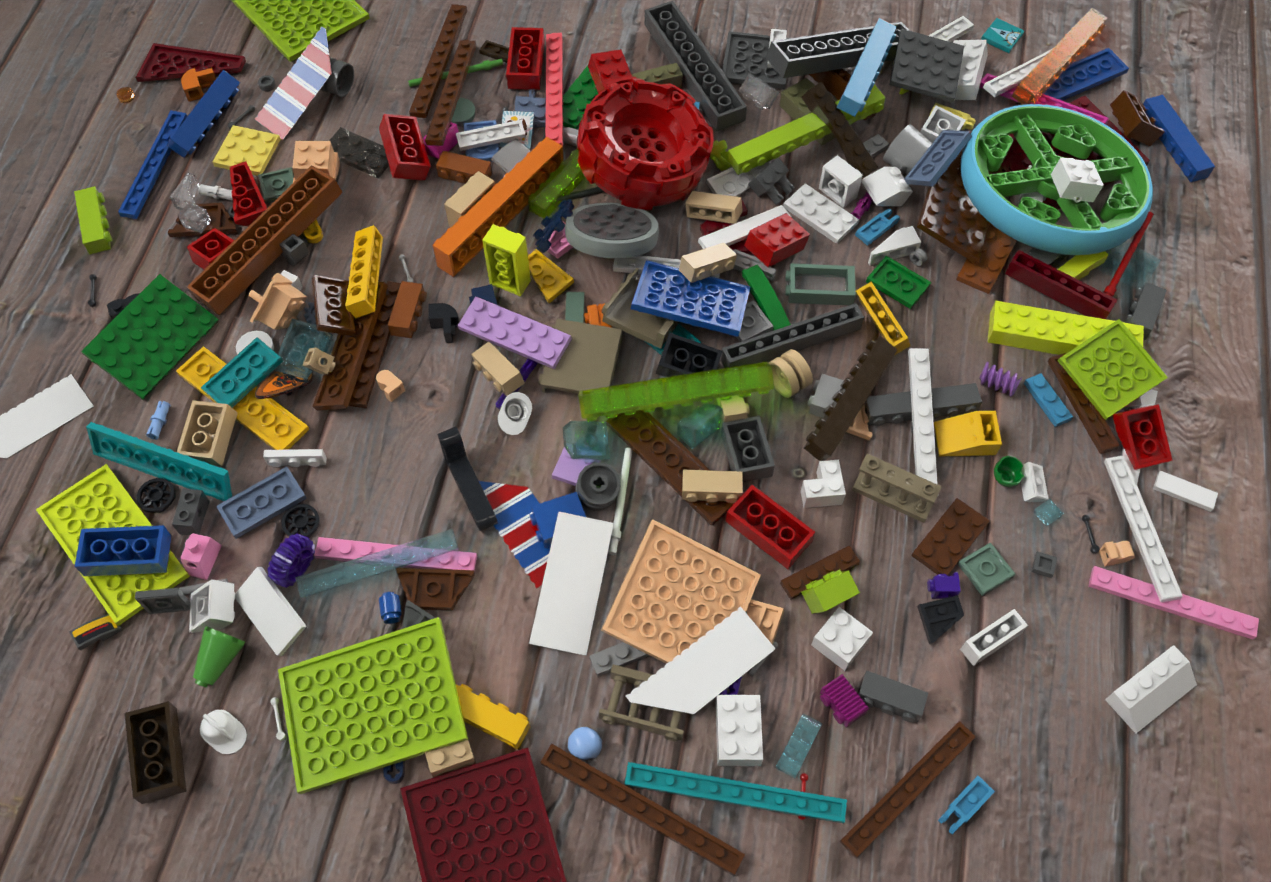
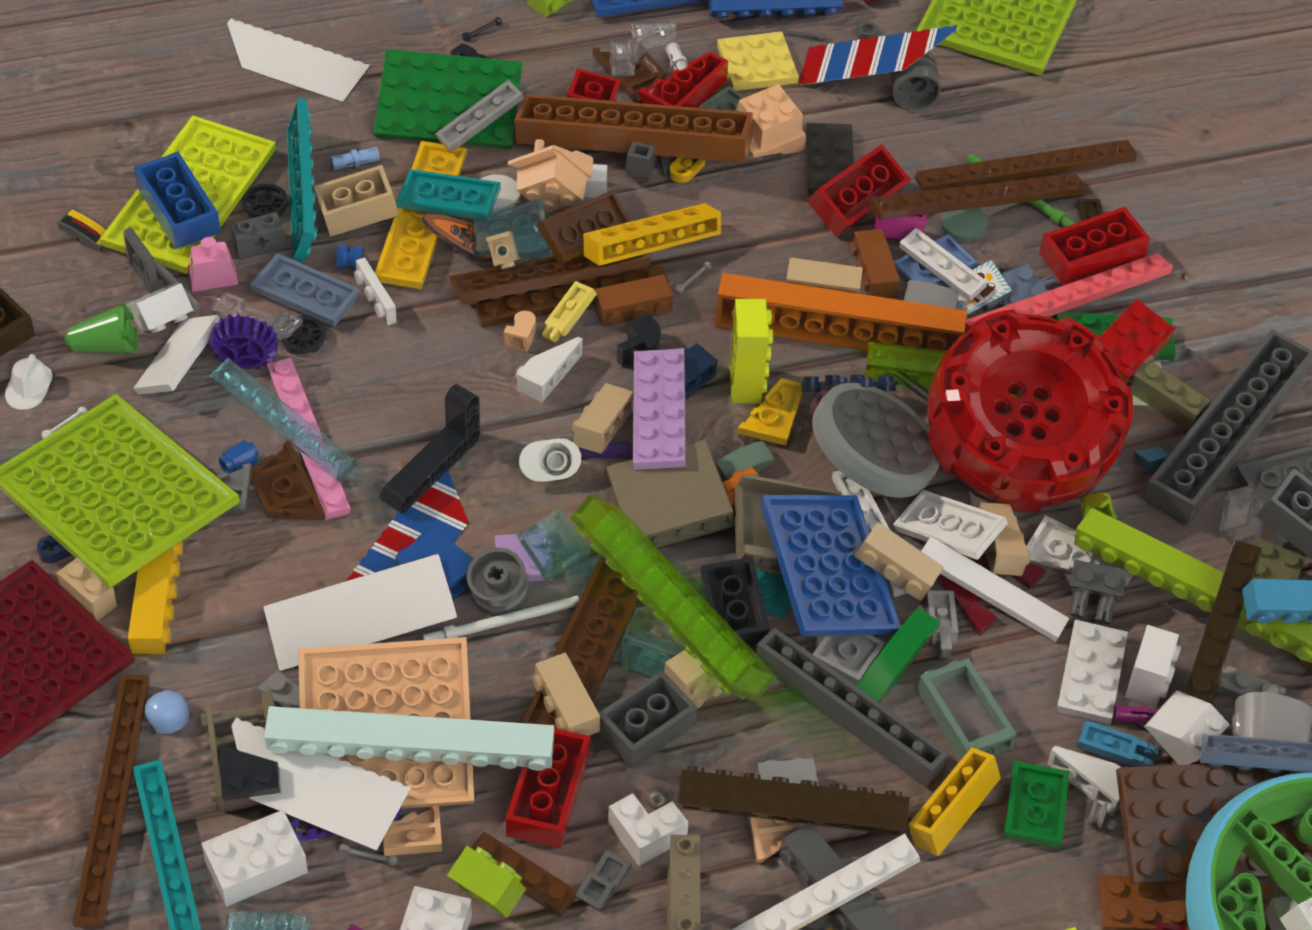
camera: 60 degrees right, 10 degrees down
(186, 323) = (479, 116): none -> light grey plate
(252, 460) = (348, 257): none -> blue wheel
(262, 551) = (229, 304): none -> clear slope
(392, 349) = (568, 311): none -> light yellow hinge
(434, 386) = (547, 369): none -> white slope
(677, 707) = (247, 775): none -> black wing
(690, 225) = (950, 522): none -> white tile
(706, 591) = (409, 738): none -> light aqua brick
(776, 240) = (997, 629): red brick -> none
(790, 373) = (788, 720): tan wheel -> none
(846, 528) = (604, 880): none -> dark grey slope

